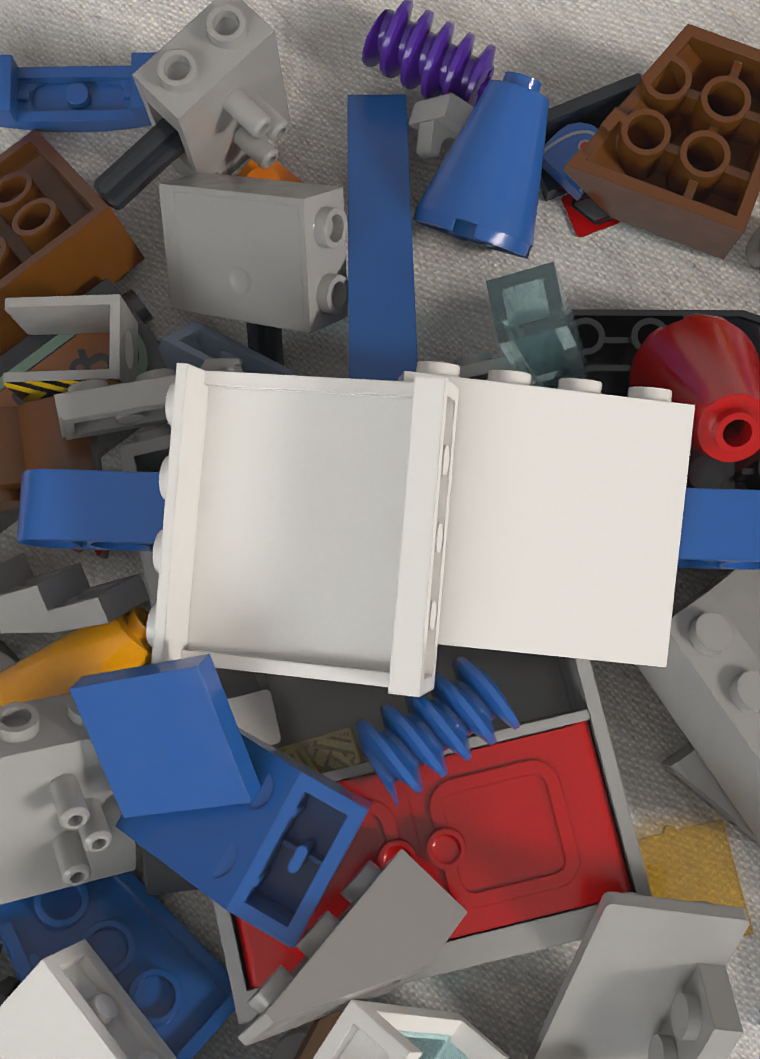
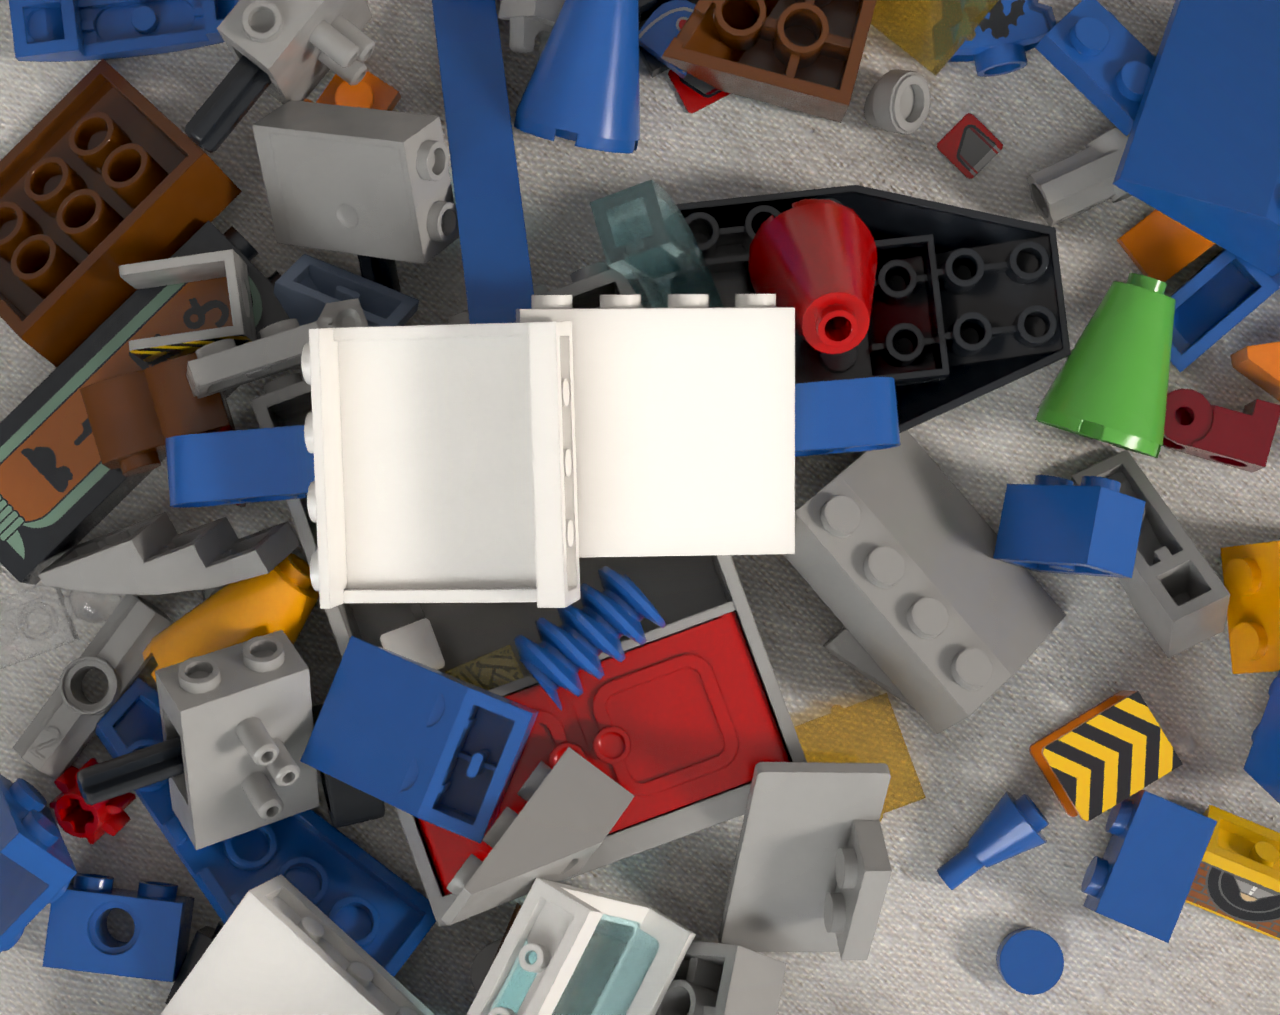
camera: 15 degrees left, 5 degrees up
(166, 737) = (341, 671): blue tile -> none

